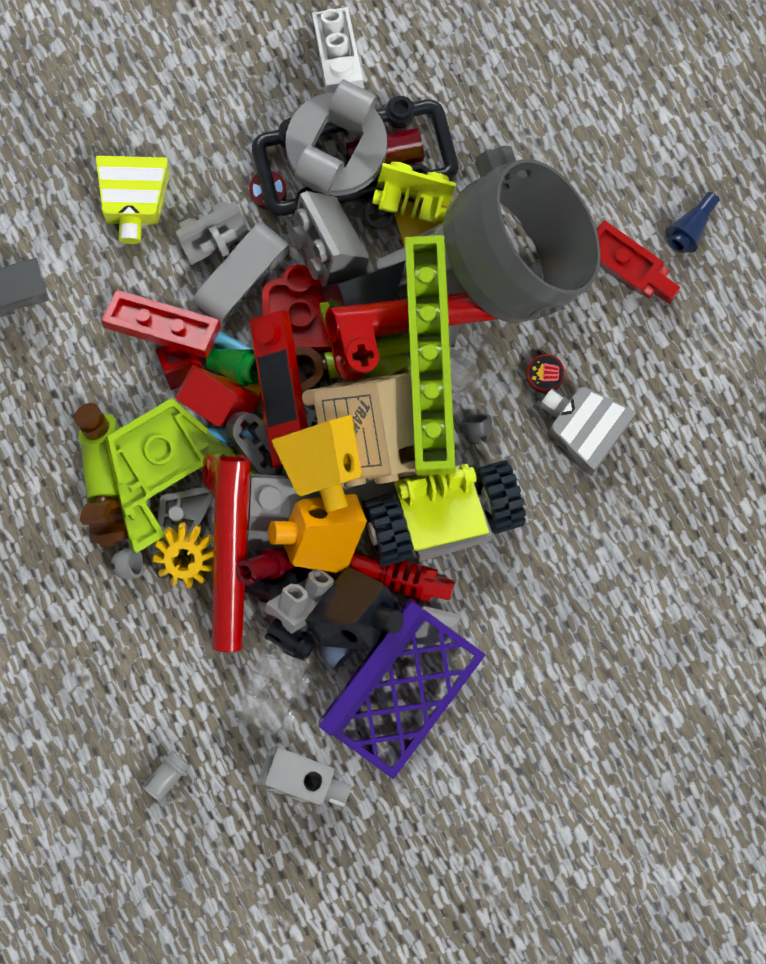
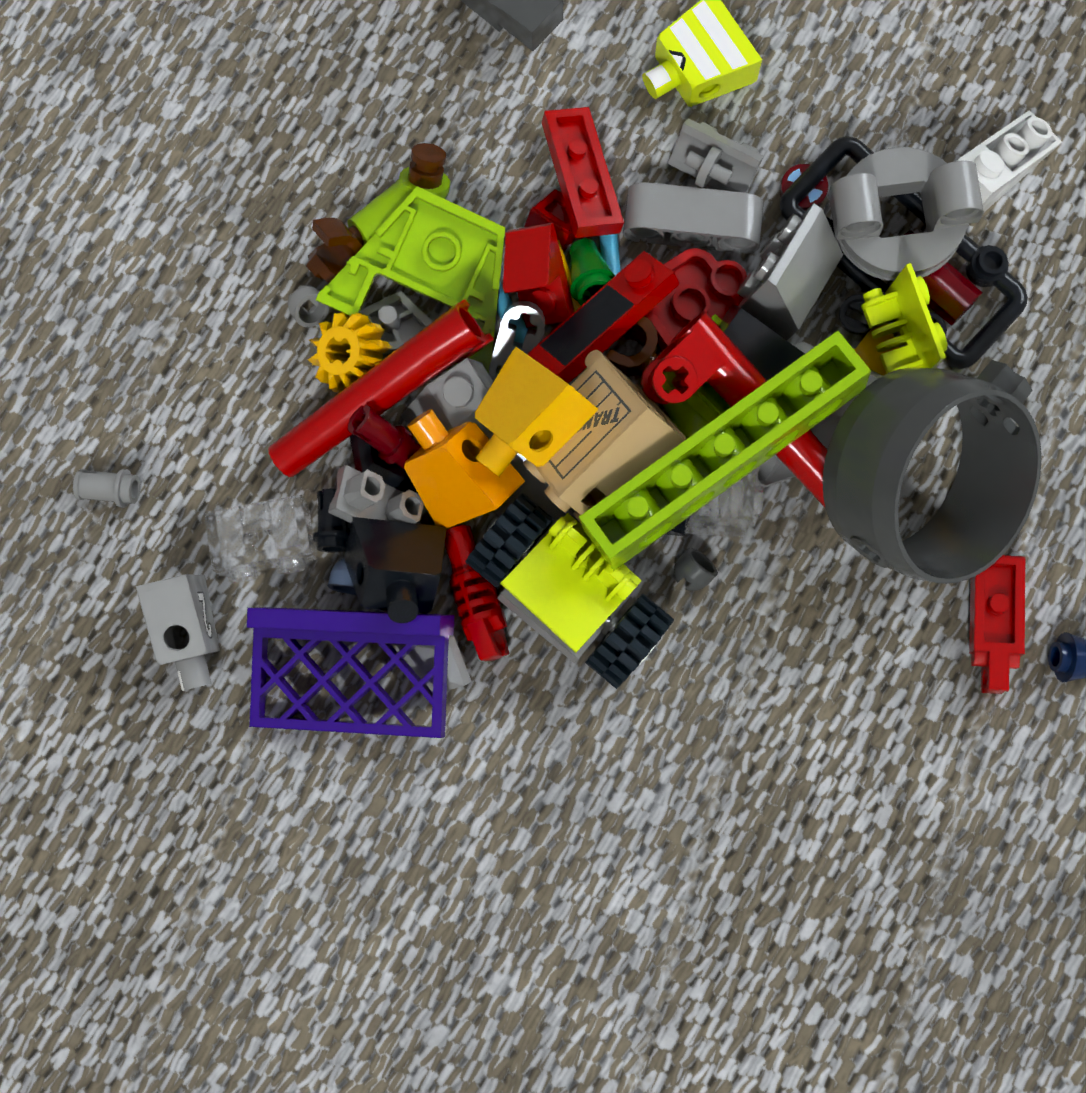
camera: 65 degrees right, 0 degrees up
(545, 373) = (806, 605): tile -> none
(586, 425) = (778, 686): light grey torso -> none

